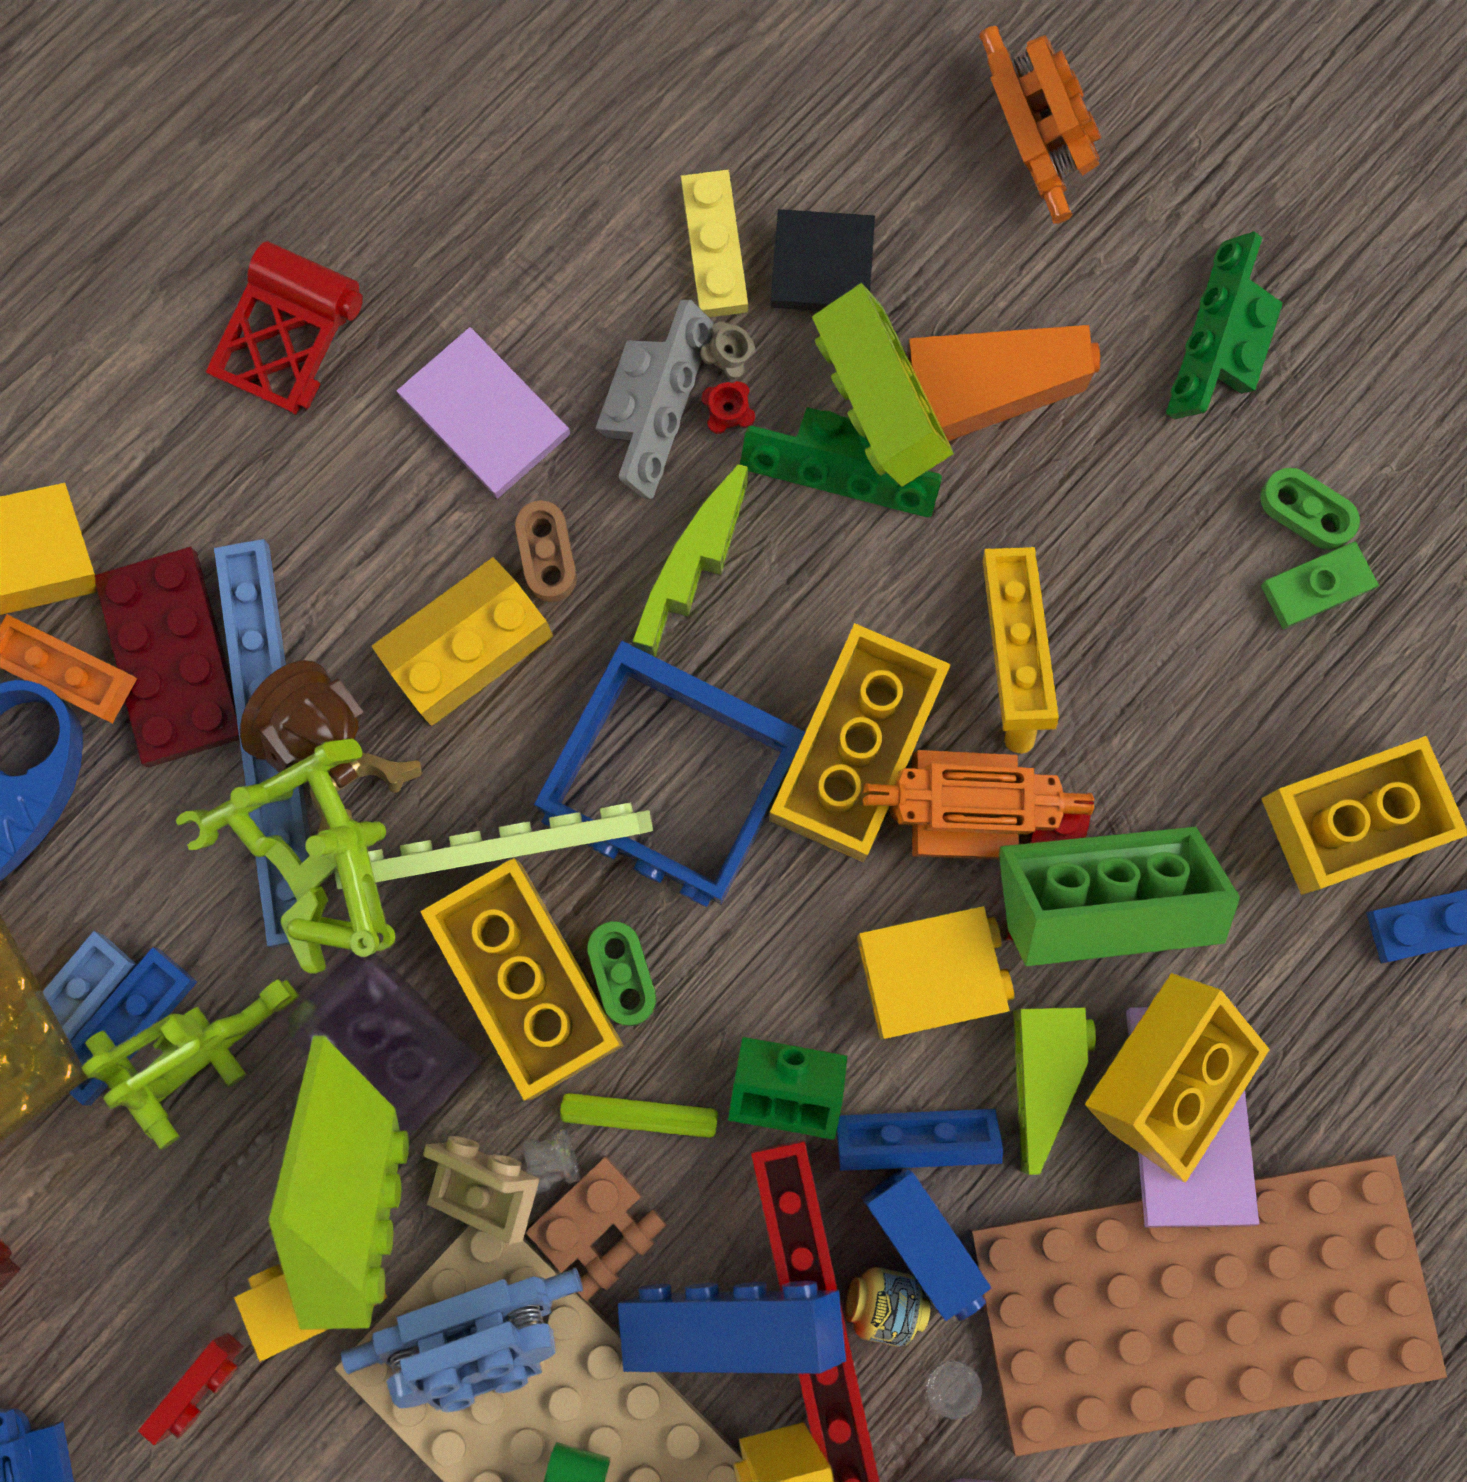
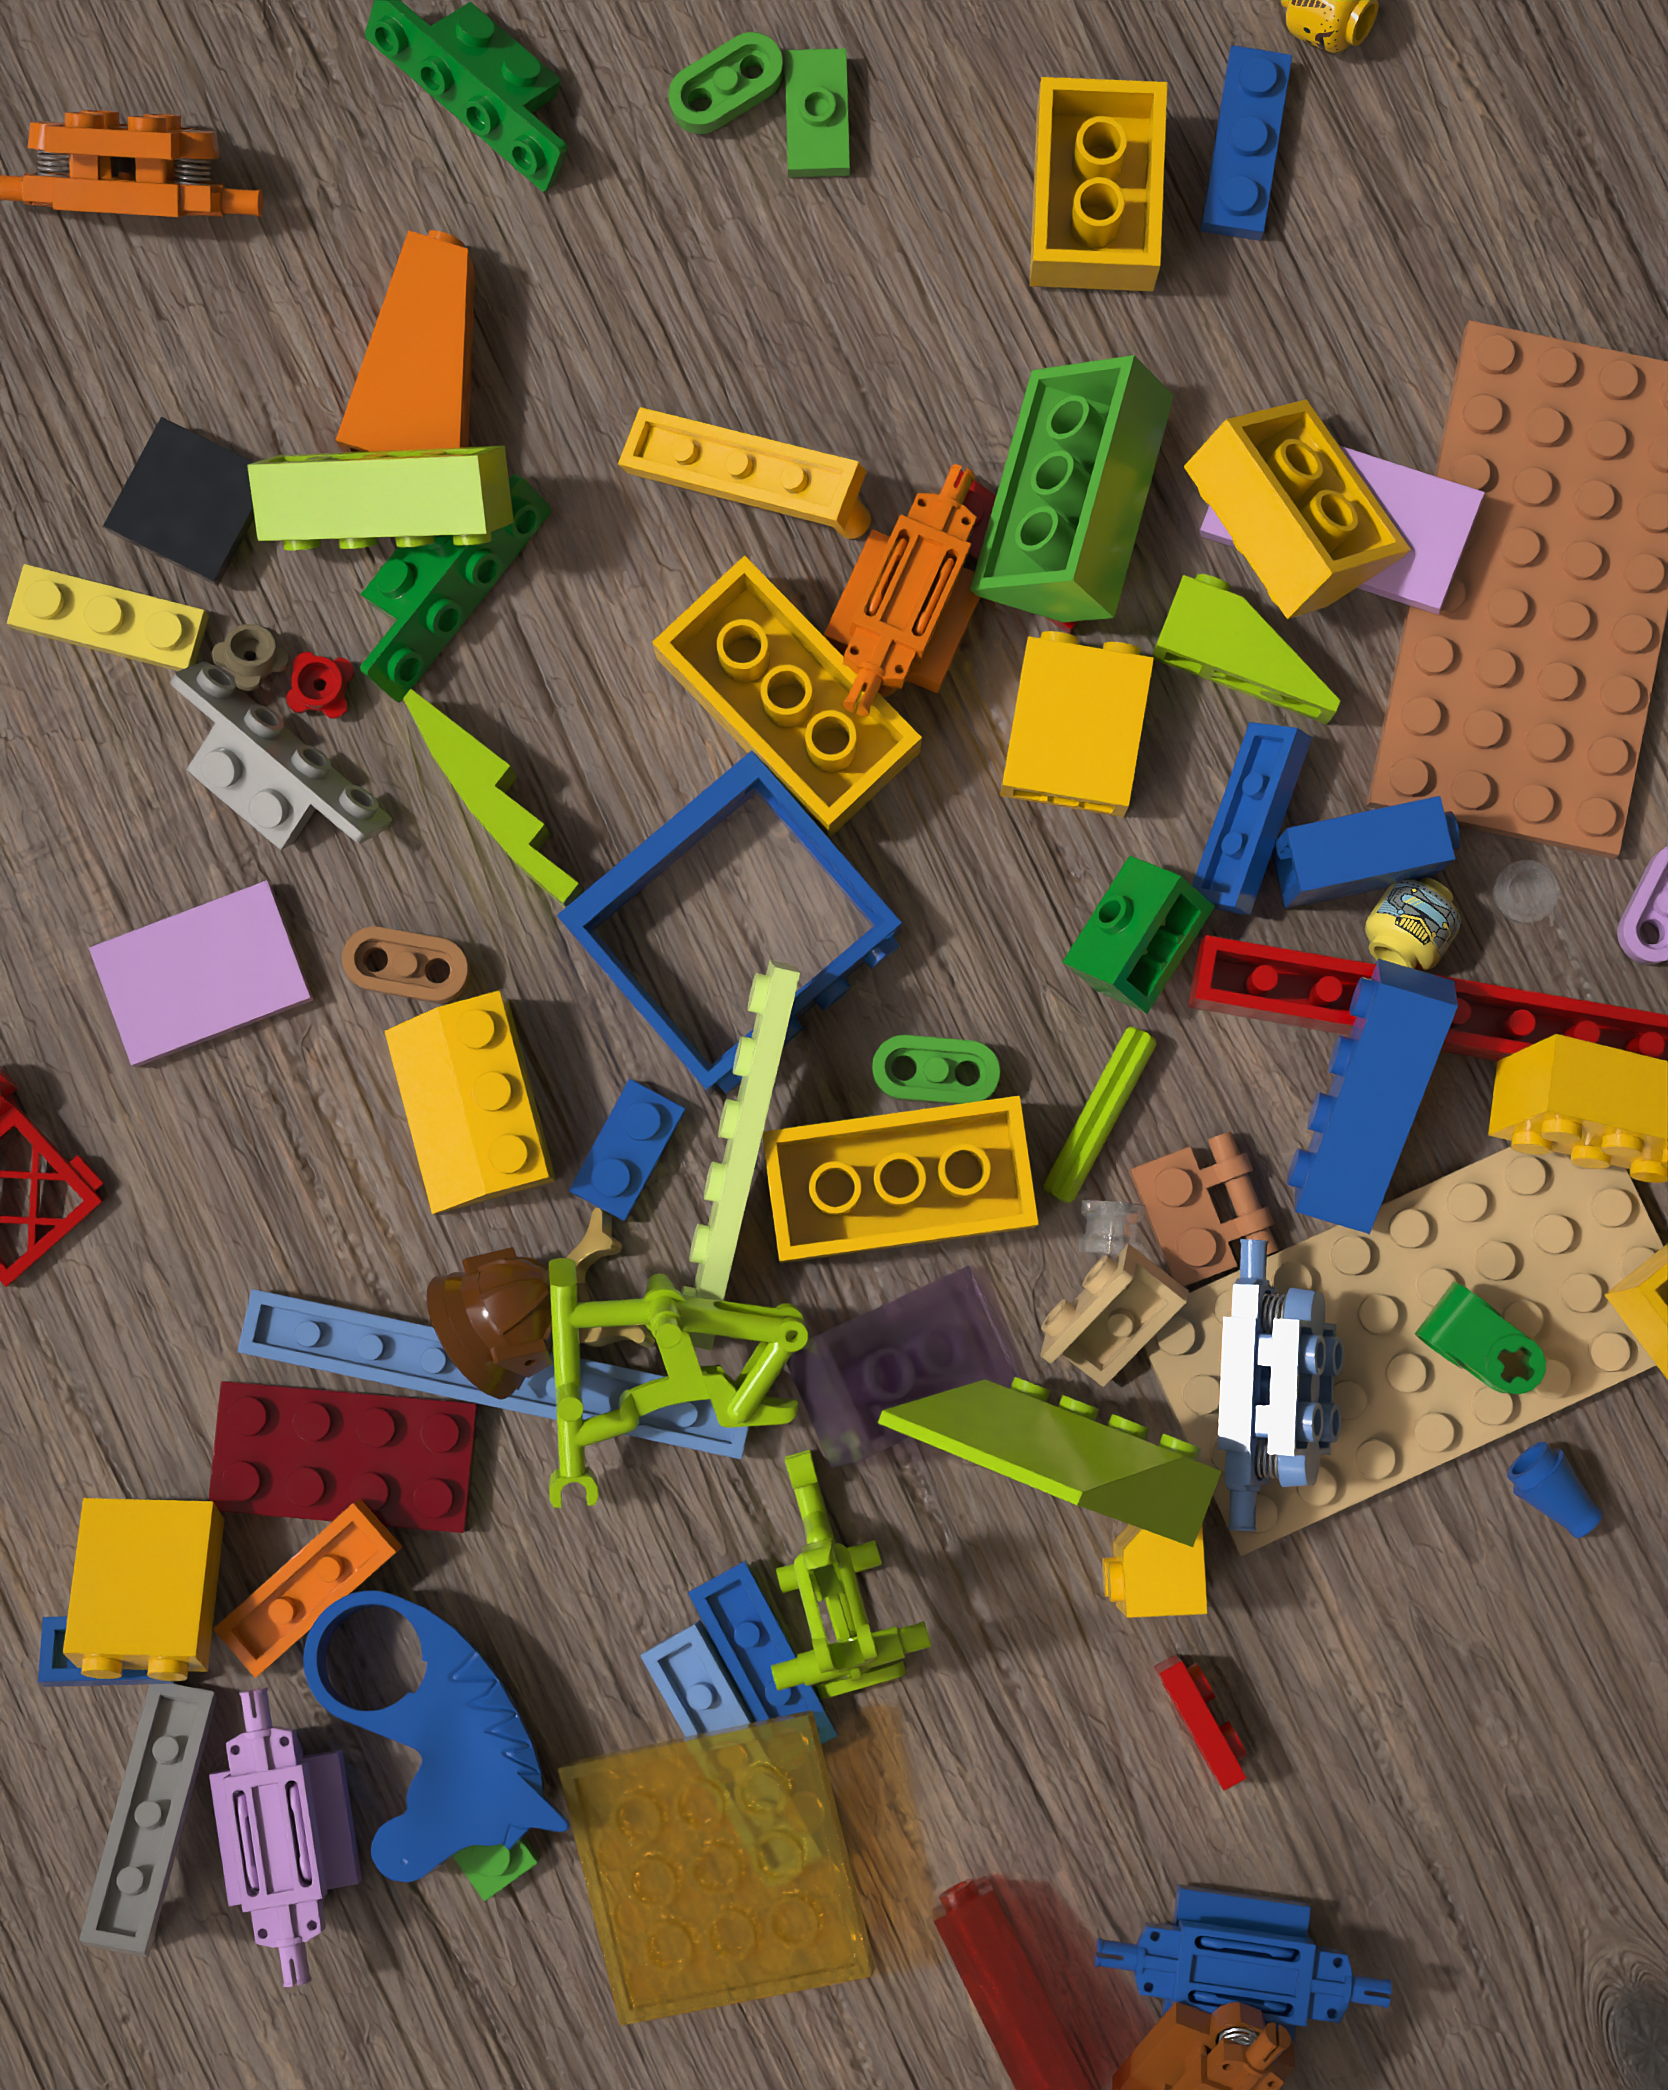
camera: 65 degrees left, 5 degrees up
(472, 768) = (627, 1150): none -> blue plate

